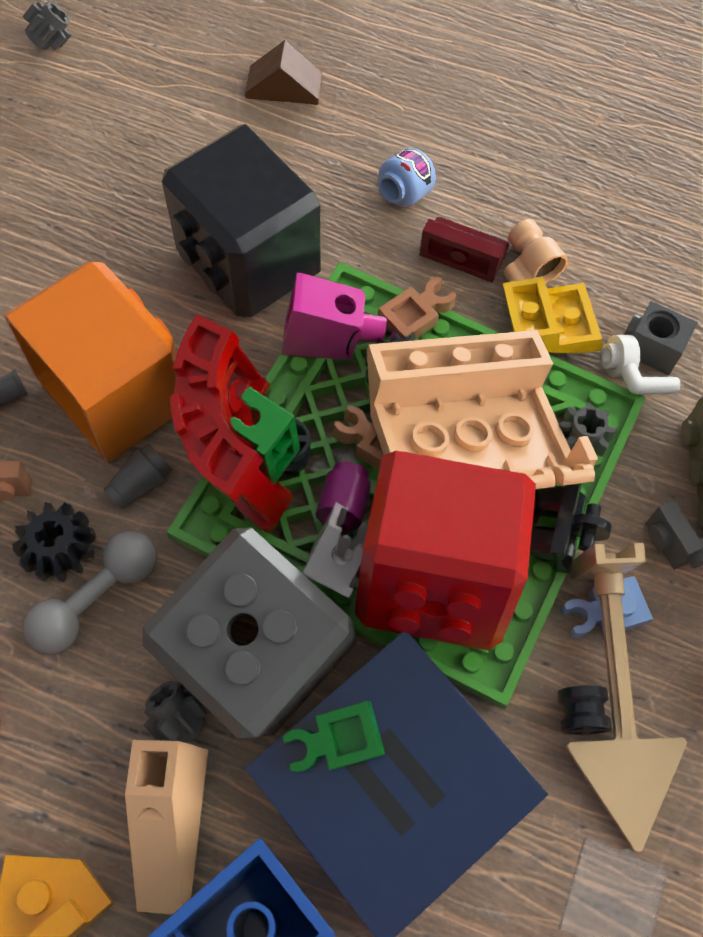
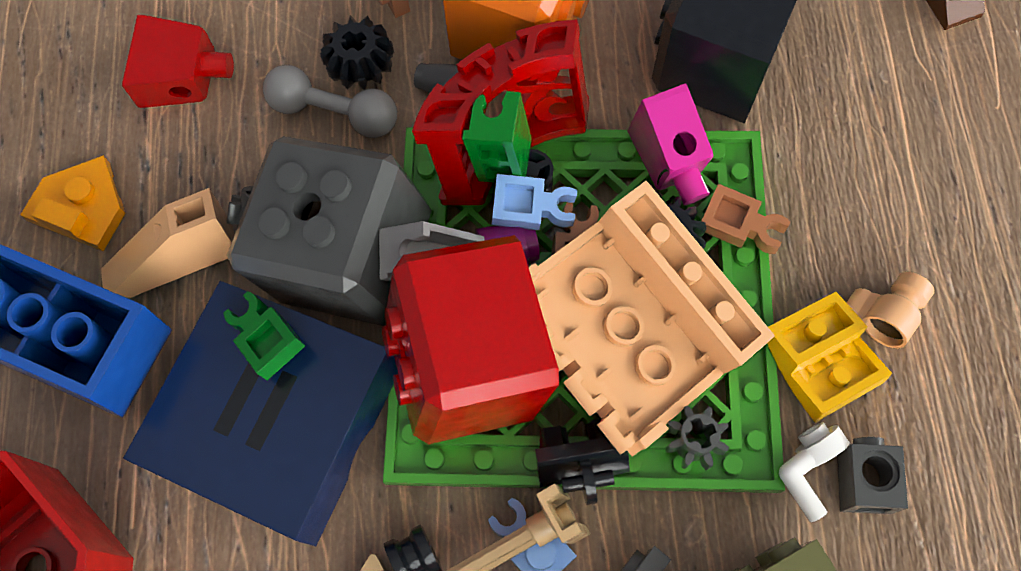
camera: 70 degrees right, 5 degrees up
(323, 455) = (522, 203): none -> light blue plate
(406, 177) = (902, 144): light blue head -> none
(463, 248) = (860, 238): dark red panel -> none

